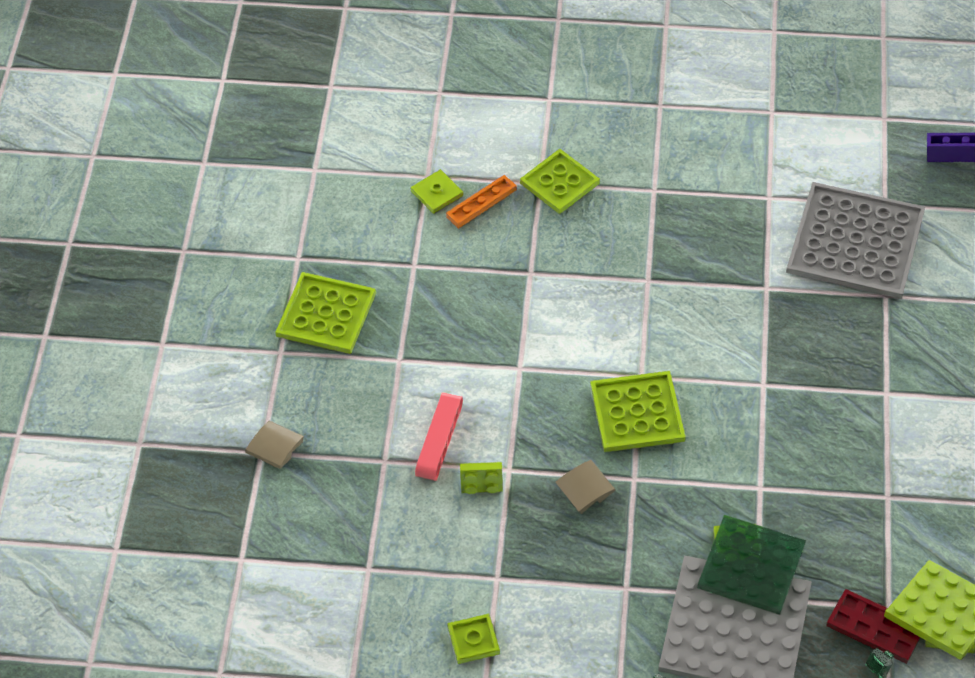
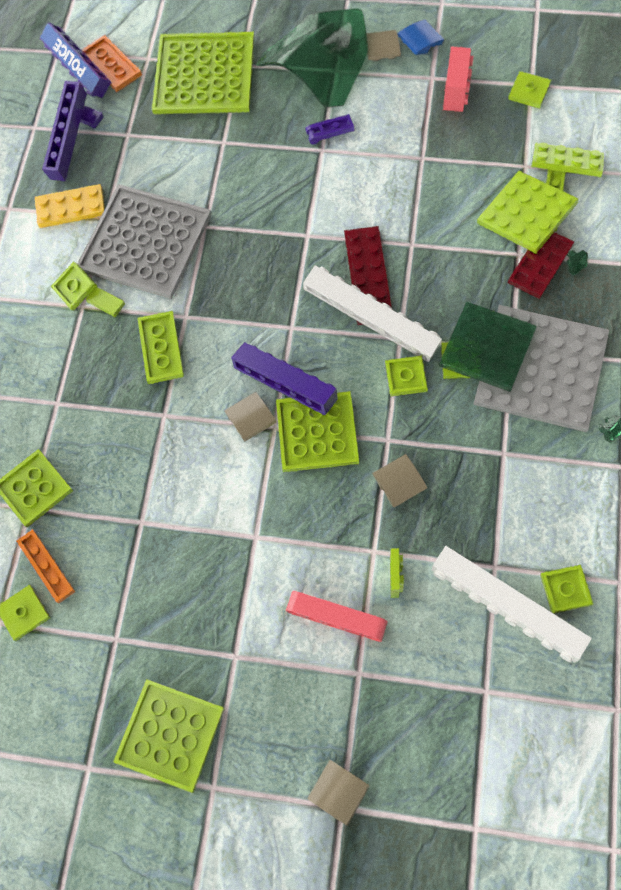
camera: 80 degrees left, 15 degrees up
(455, 585) = (511, 604): none -> white brick
(649, 350) = (250, 416): none -> dark tan slope
(692, 374) = (285, 378): none -> dark purple brick
(710, 490) = (406, 376): none -> lime plate
(724, 267) = (160, 347): none -> lime plate
(776, 215) = (105, 301): none -> lime tile
(779, 449) = (372, 313): none -> white brick
(789, 184) = (73, 286): none -> lime plate
(839, 452) = (367, 263): none -> dark red plate
(894, 170) = (69, 206): none -> yellow plate

